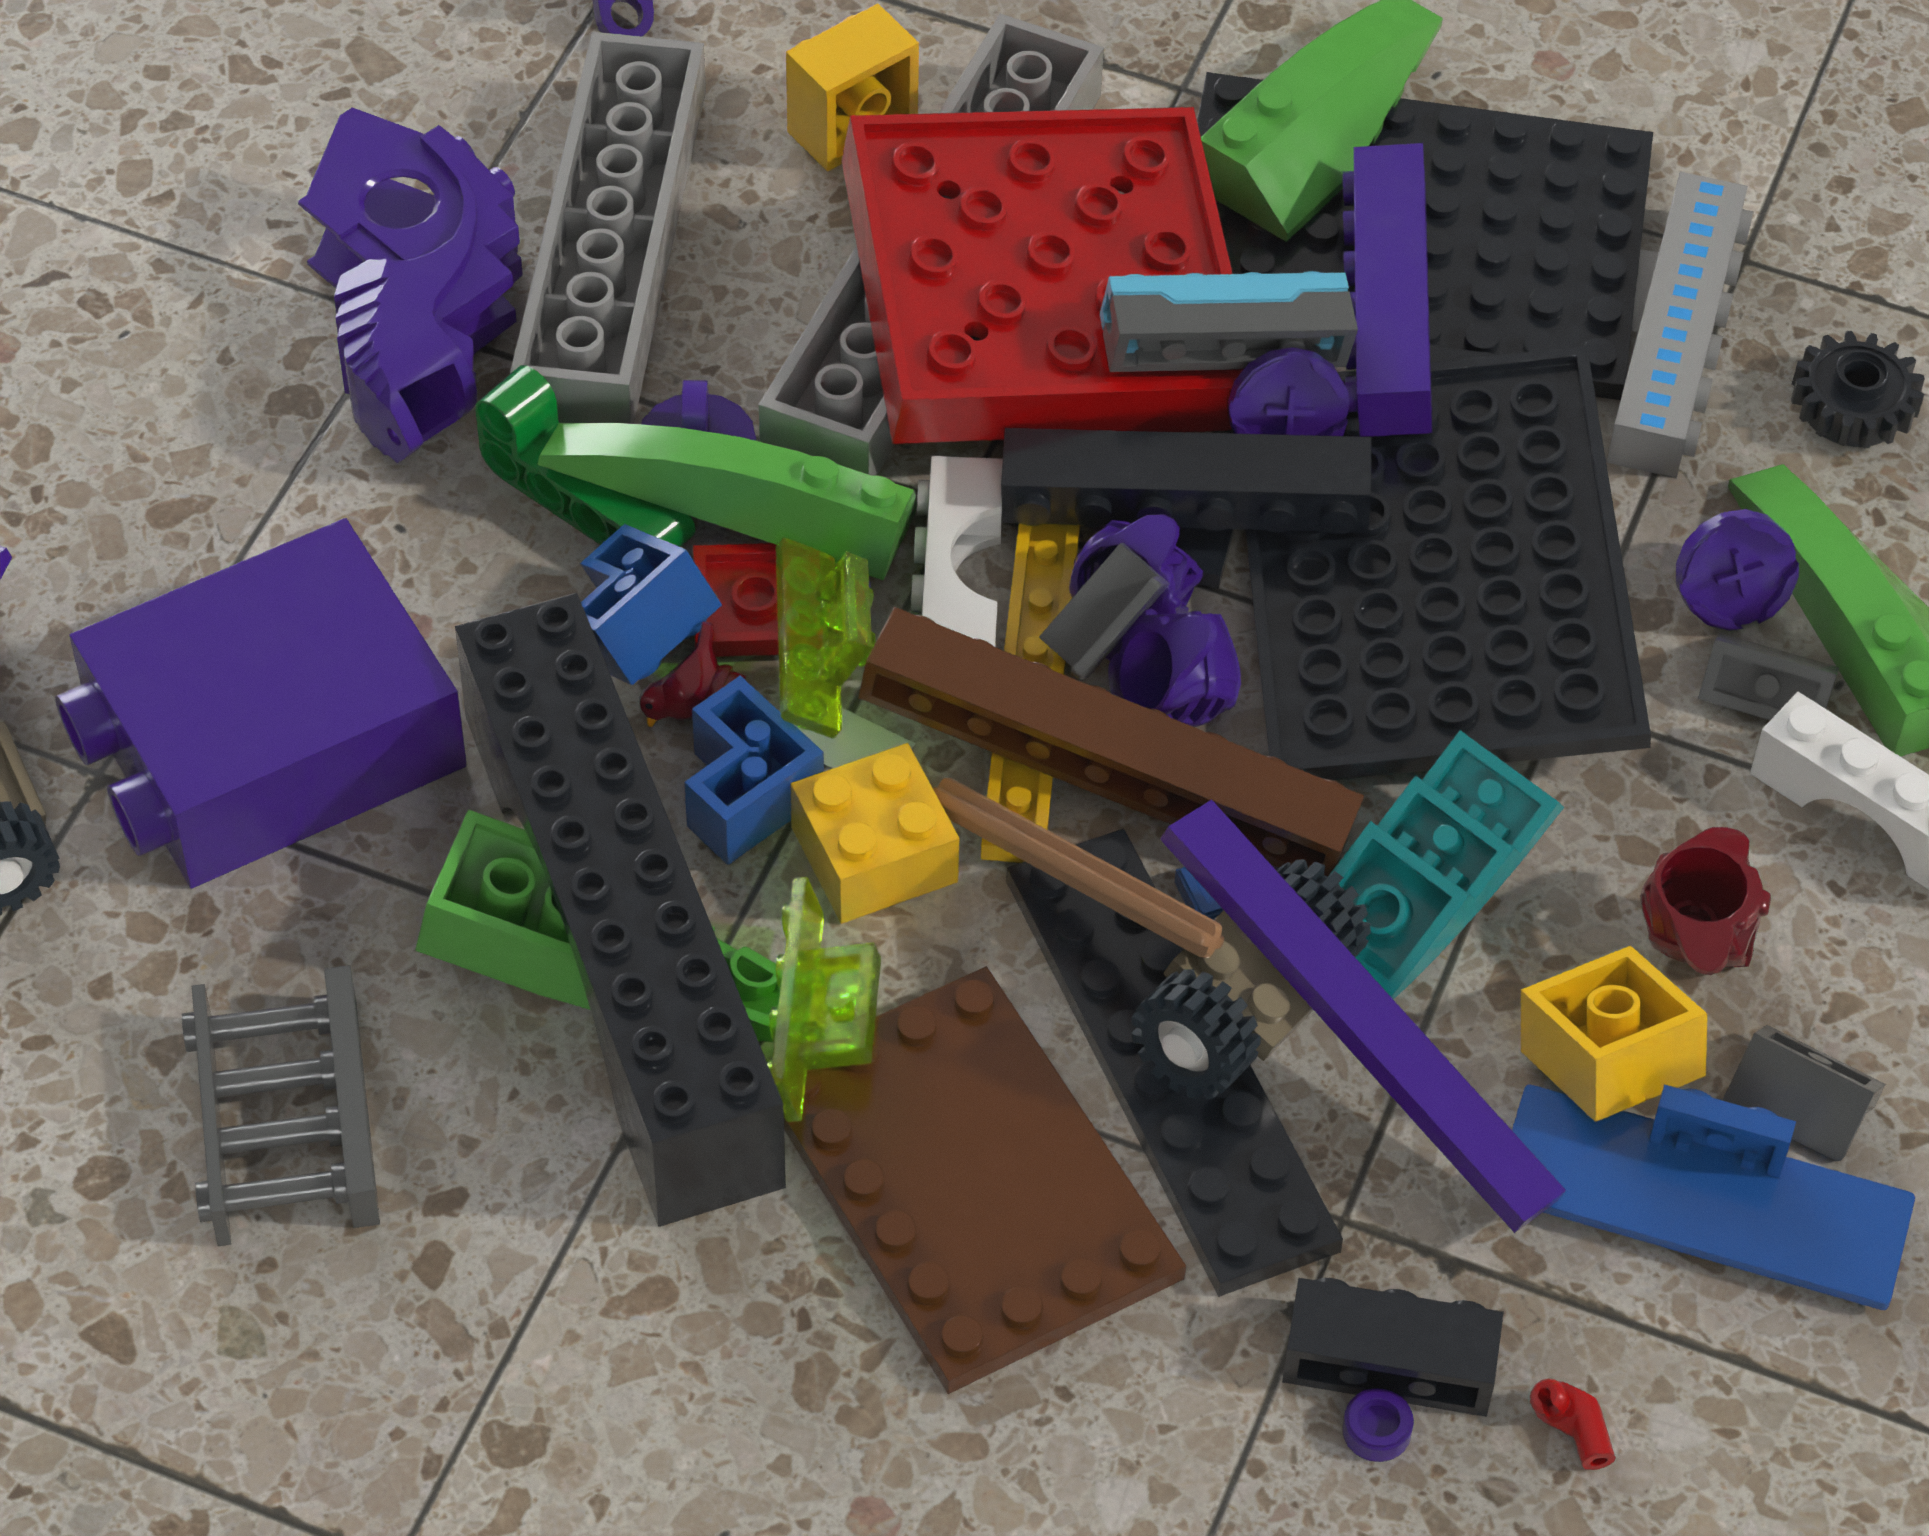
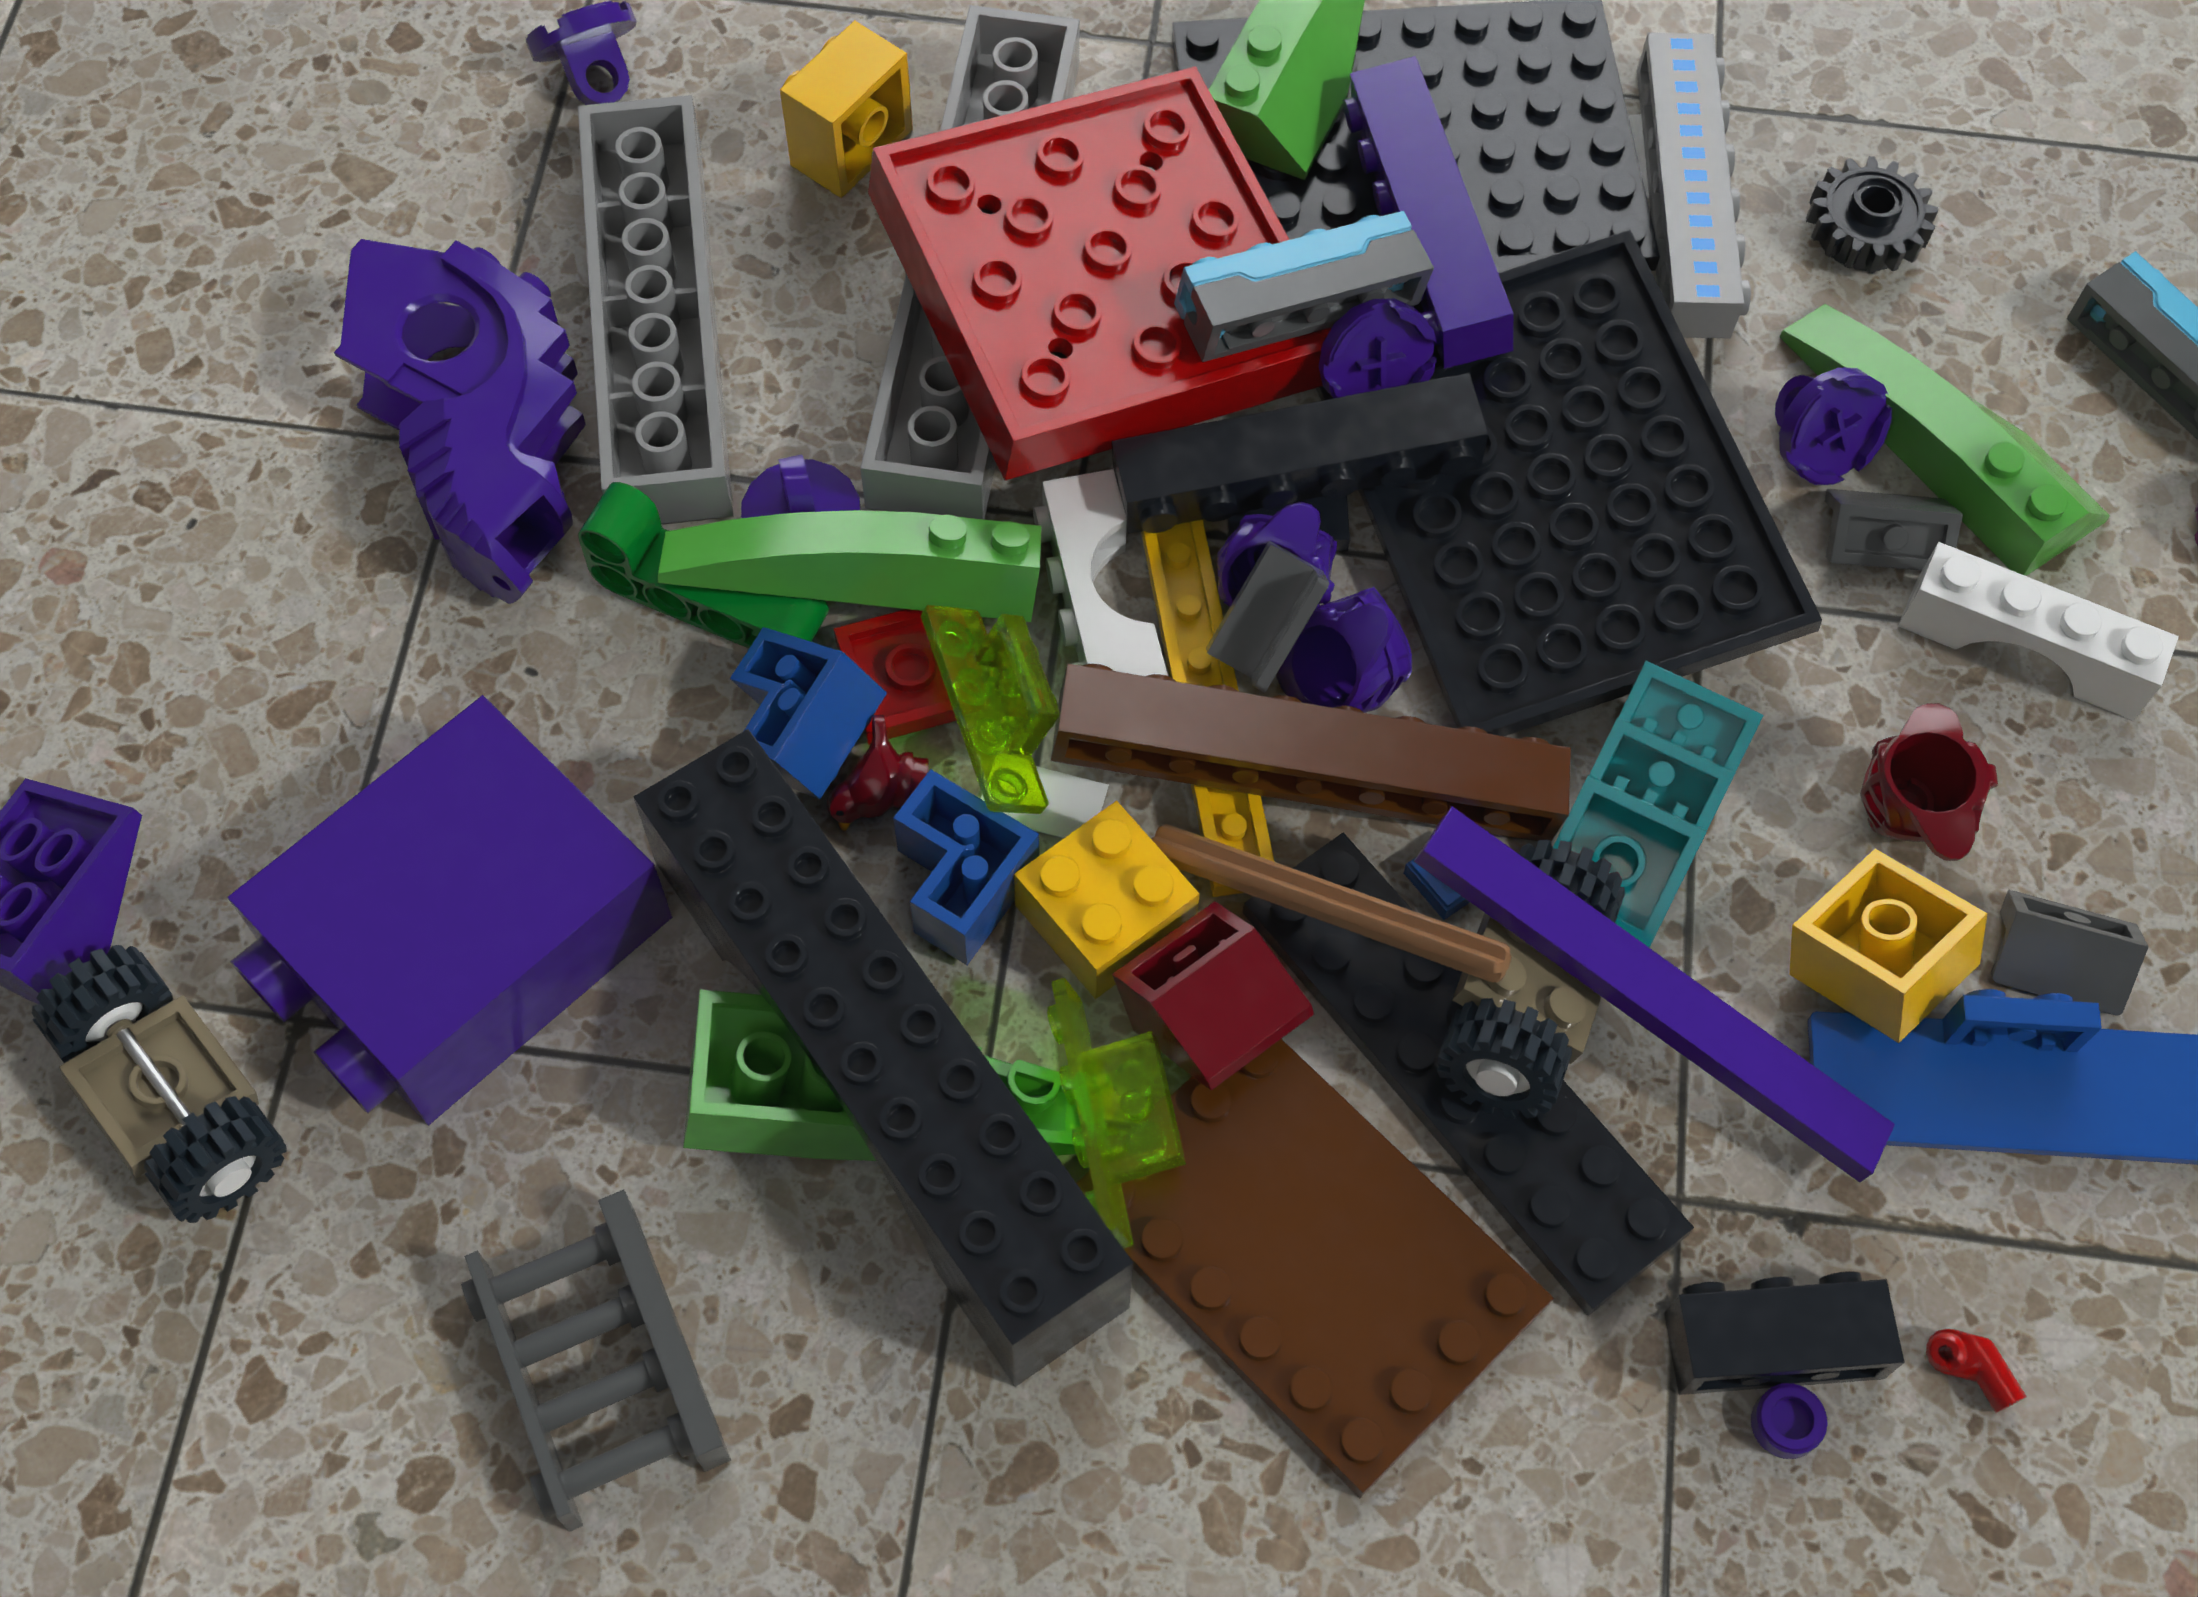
camera: 15 degrees left, 10 degrees up
(943, 928) = (1211, 995): none -> dark red slope

